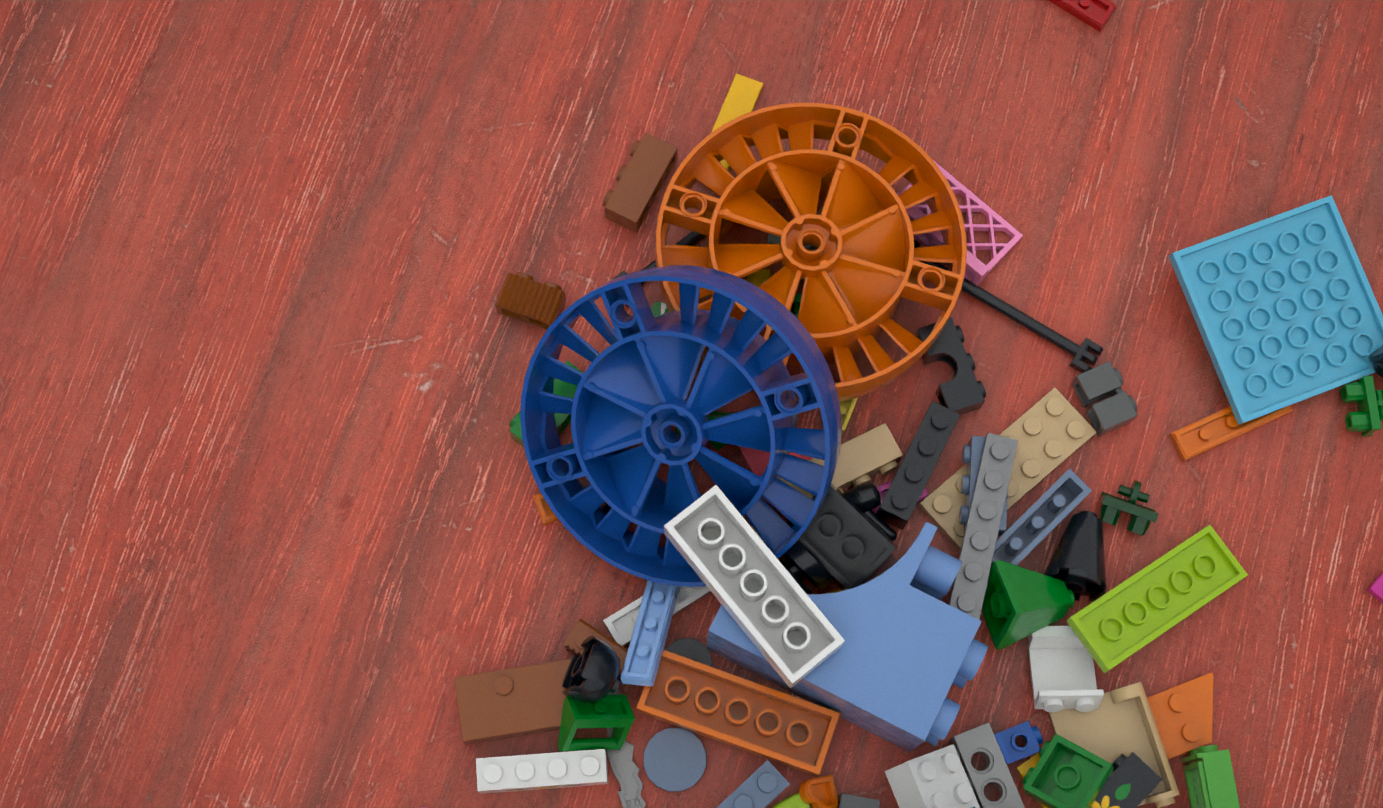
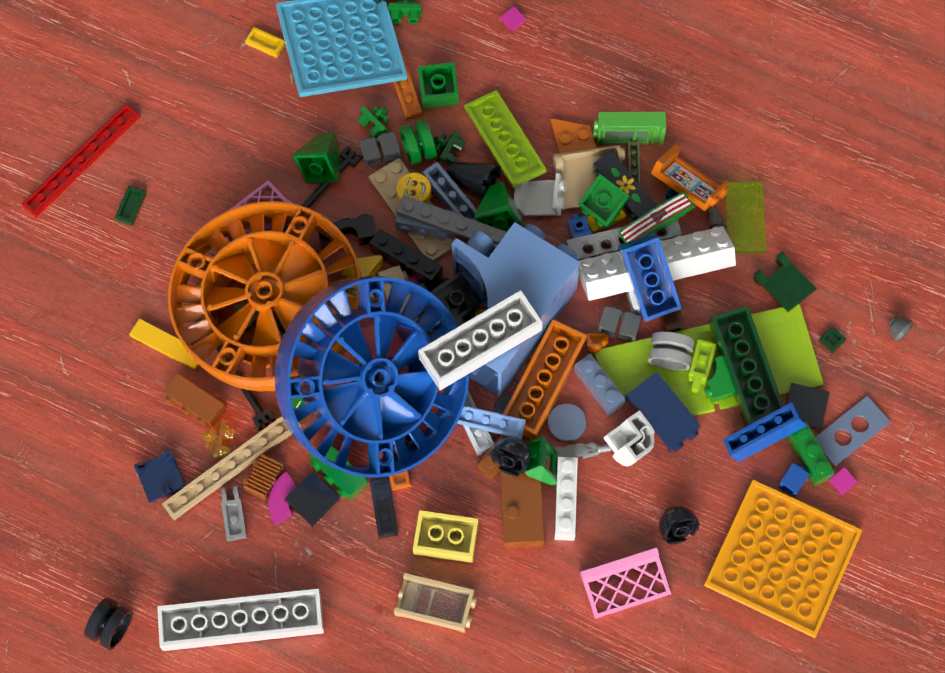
camera: 80 degrees left, 5 degrees down
(282, 115) = (108, 623): none -> black wheel
(304, 301) = (240, 619): none -> white brick
(355, 585) = (435, 602): none -> door
(459, 586) = (445, 536): none -> light yellow brick
(469, 266) = (233, 515): none -> light grey hinge
(496, 489) = (383, 508): none -> black tile
(499, 376) = (312, 499): none -> black tile
(502, 331) = (278, 507): none -> dark pink tile
(517, 154) = (160, 476): none -> dark blue piece
(528, 235) = (227, 468): none -> tan plate
(596, 230) = (222, 431): none -> clear yellow hips
(890, 405) = (368, 266): none -> yellow slope
(946, 41) = (130, 205): none -> dark green tile
(1038, 460) = (414, 186): none -> yellow head
(1070, 306) = (319, 159): none -> green slope
(1122, 450) = (417, 142): none -> green wheel
(1158, 388) = (367, 116): none -> green hips
(1236, 476) = (438, 85): none -> green brick
(1264, 193) = (265, 42): none -> yellow tile

